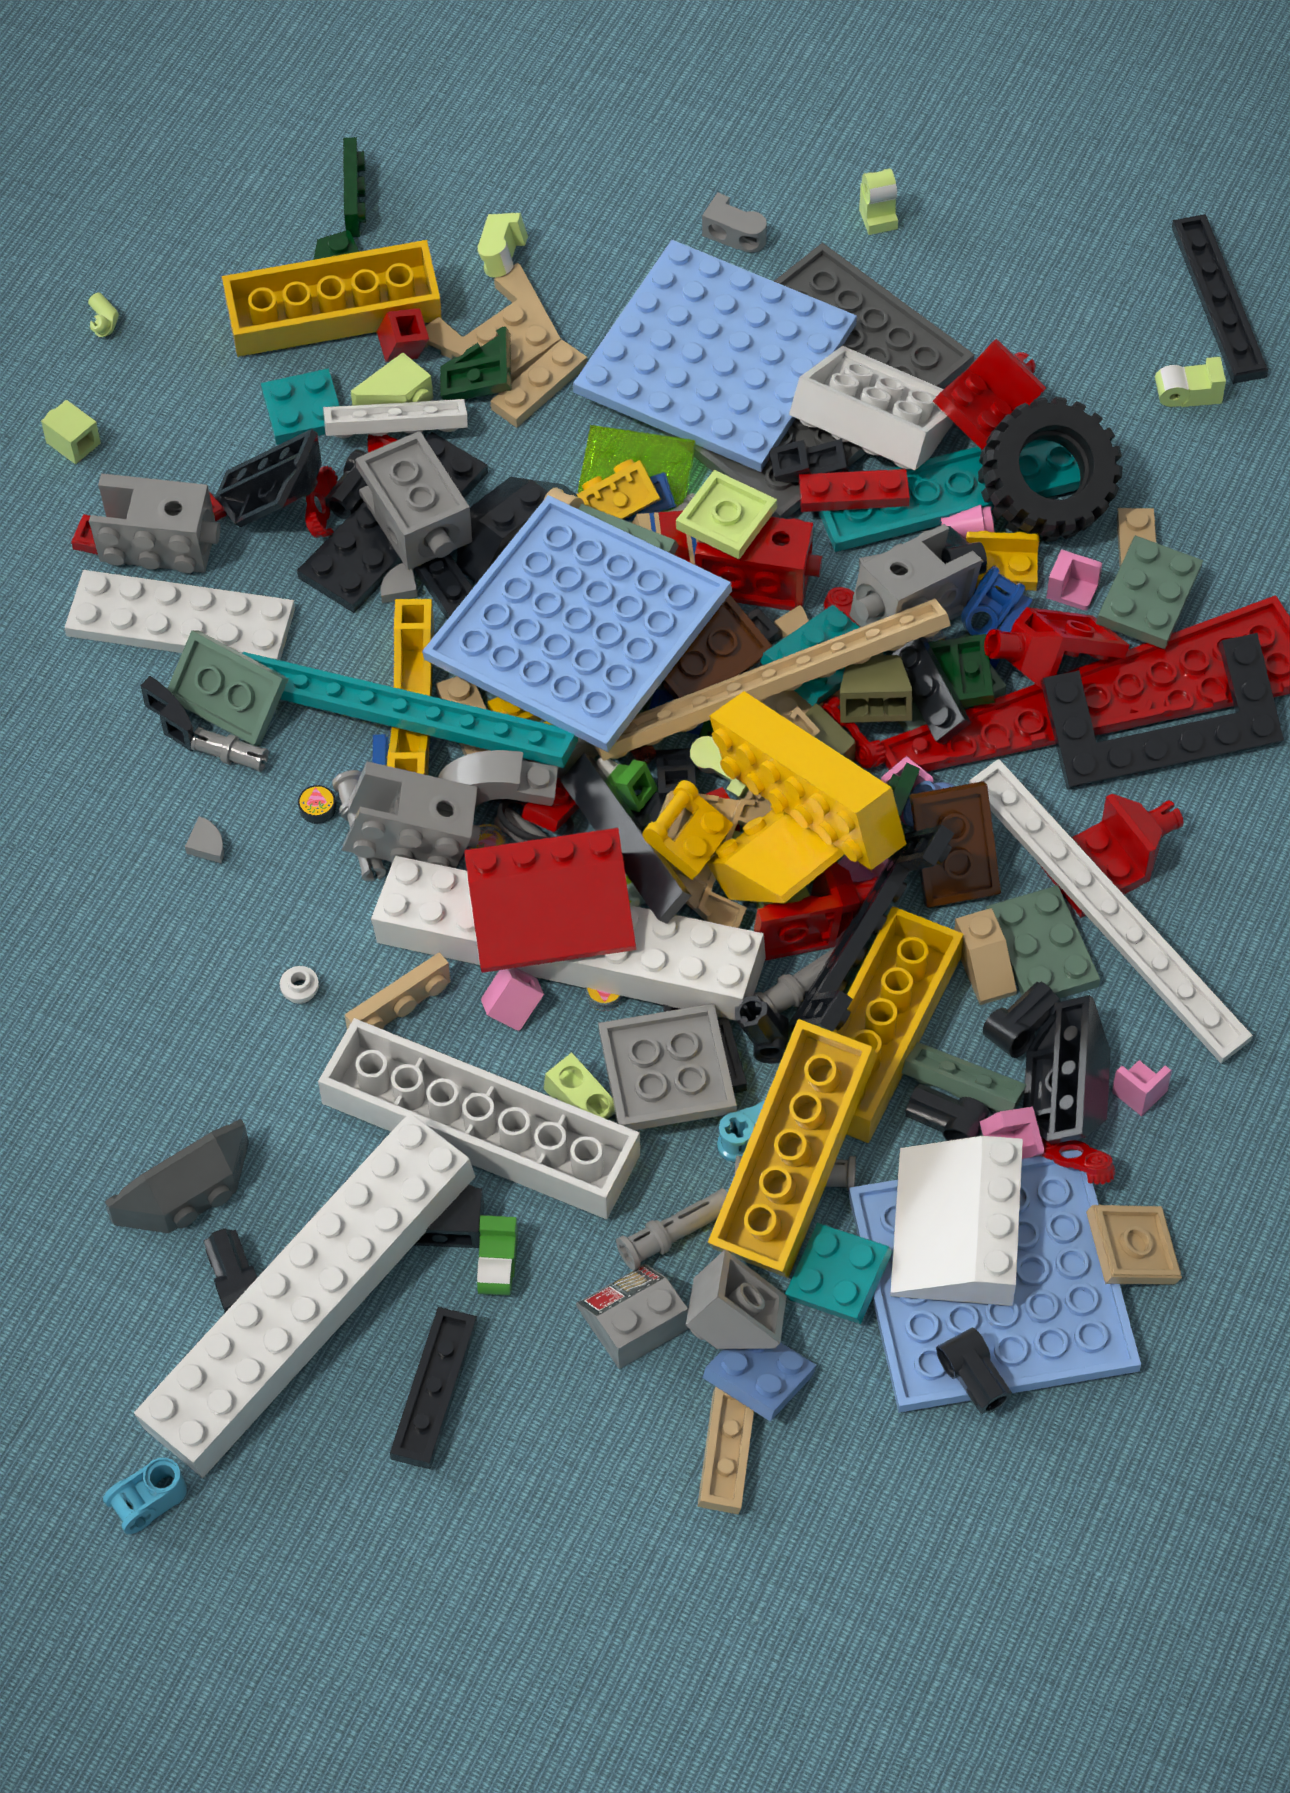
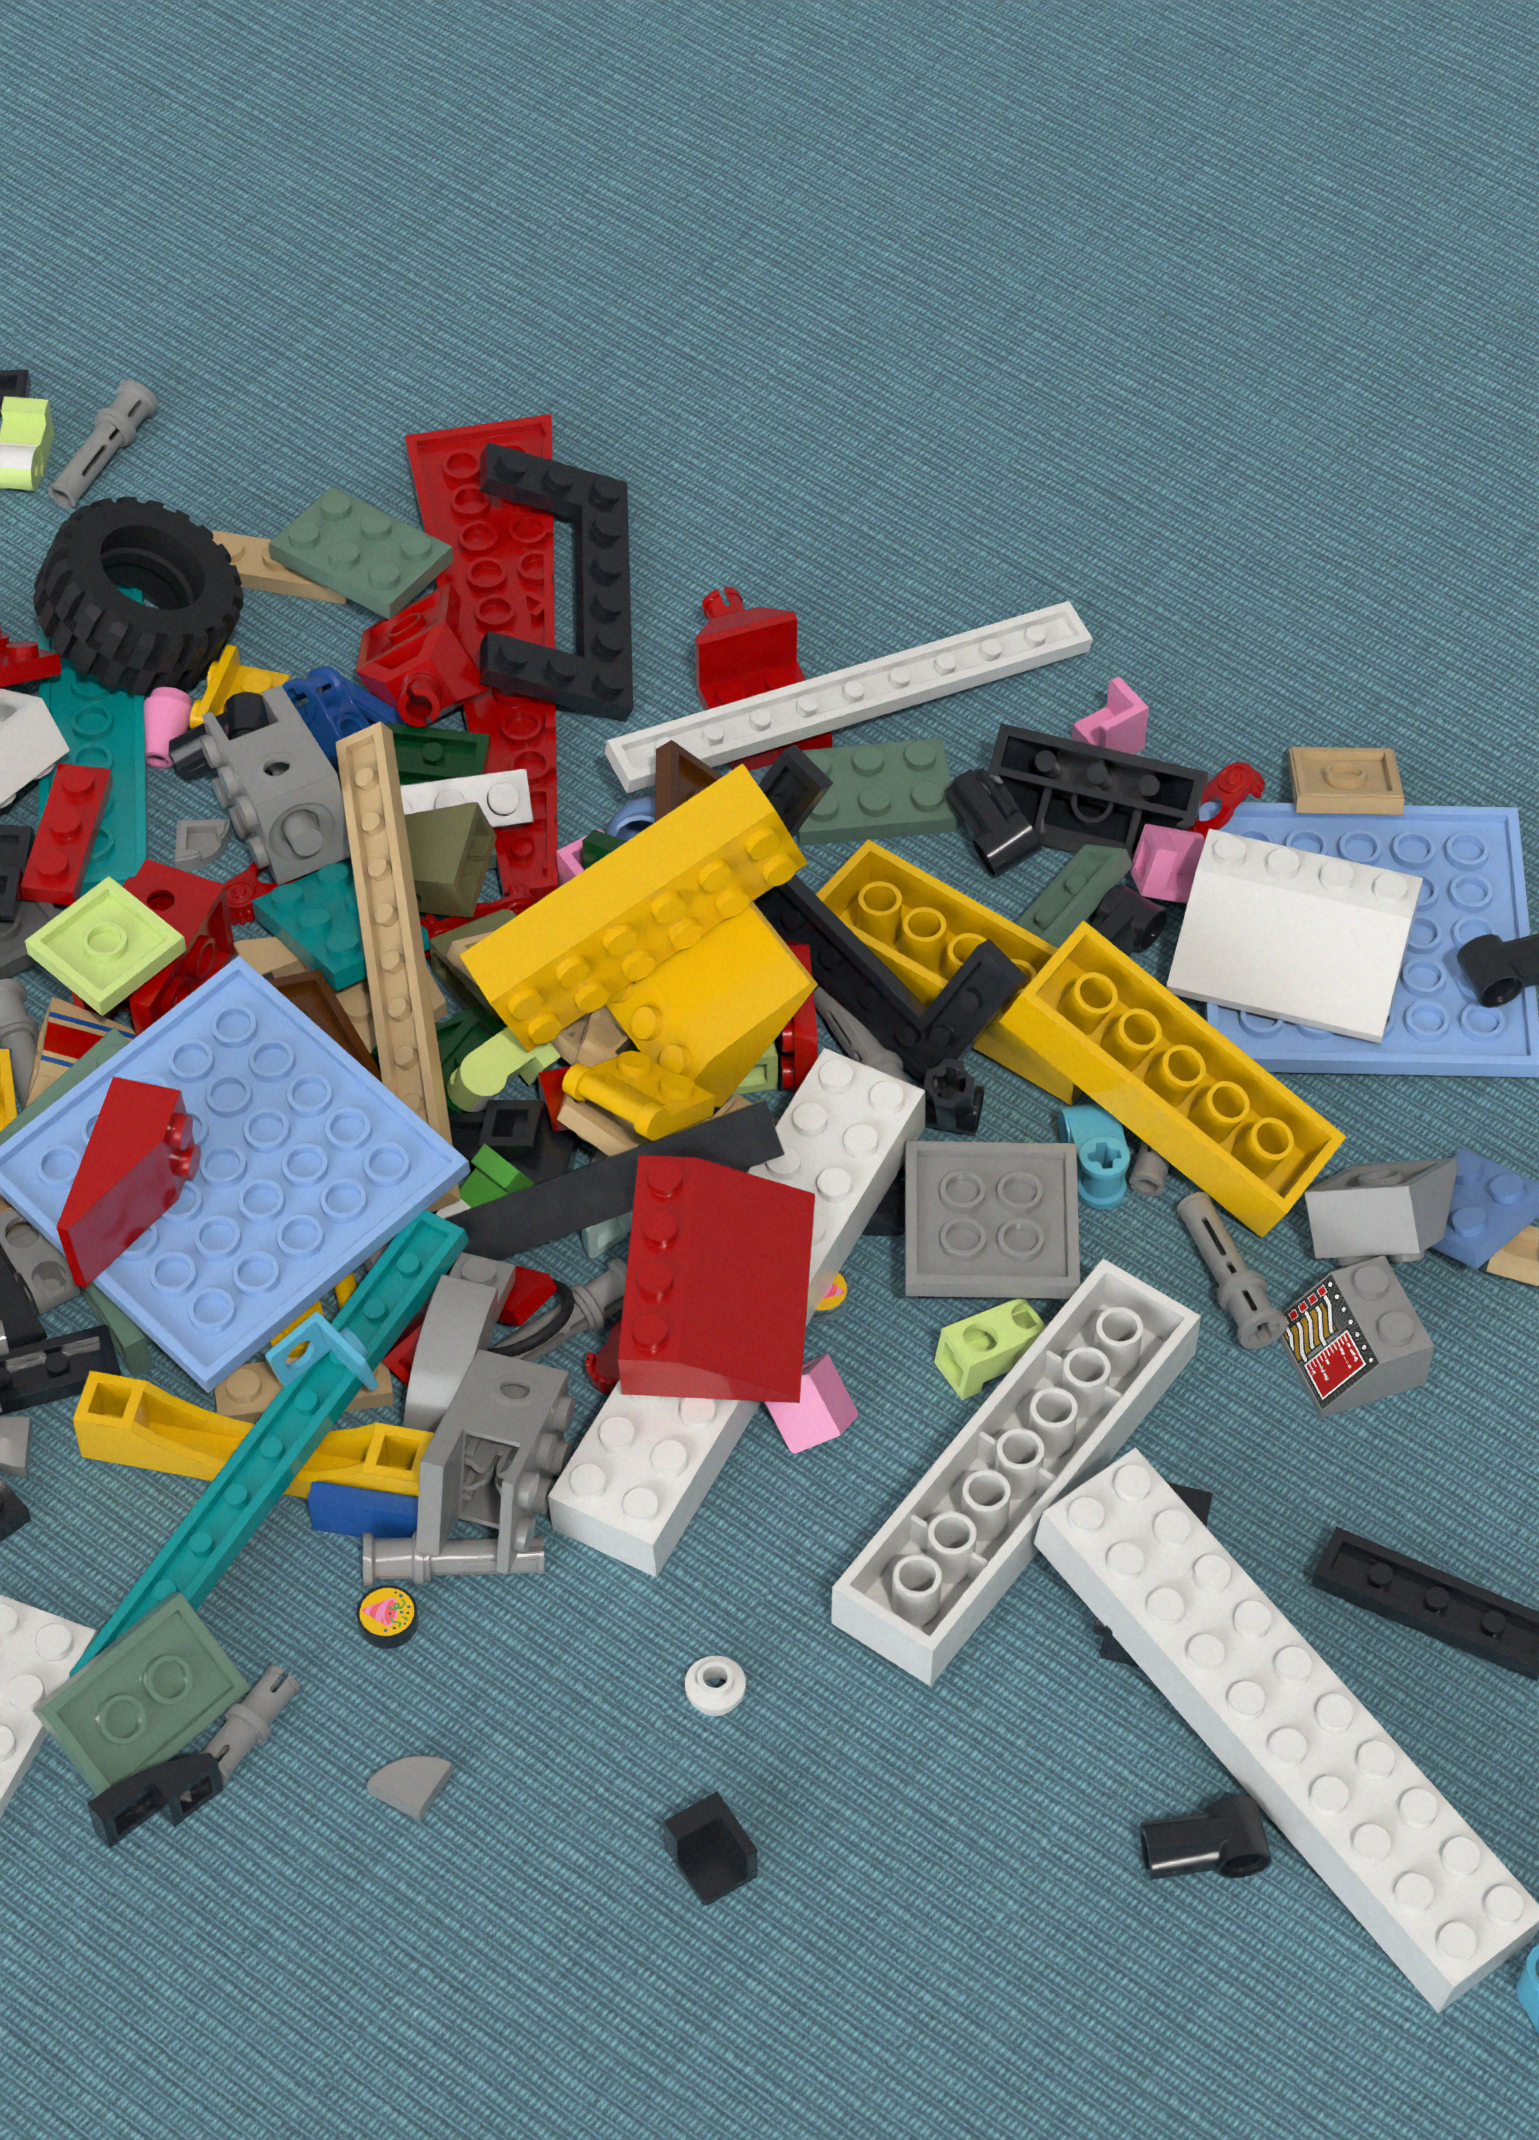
camera: 80 degrees left, 5 degrees down
(184, 1184) = (1044, 1880): dark grey wedge -> none
(187, 1003) = (710, 1849): none -> black panel
(403, 994) = (781, 1549): tan plate -> none
(458, 708) = (321, 1339): none -> medium azure bracket
(497, 1255) = (1244, 1492): bright green leg -> none
(530, 557) = (127, 1174): none -> red slope
(838, 1273) = (1346, 1086): teal plate -> none
(986, 956) = (855, 824): tan slope -> none
(1074, 580) = (297, 639): bright pink panel -> none
(1229, 435) = (114, 429): none -> light grey pin

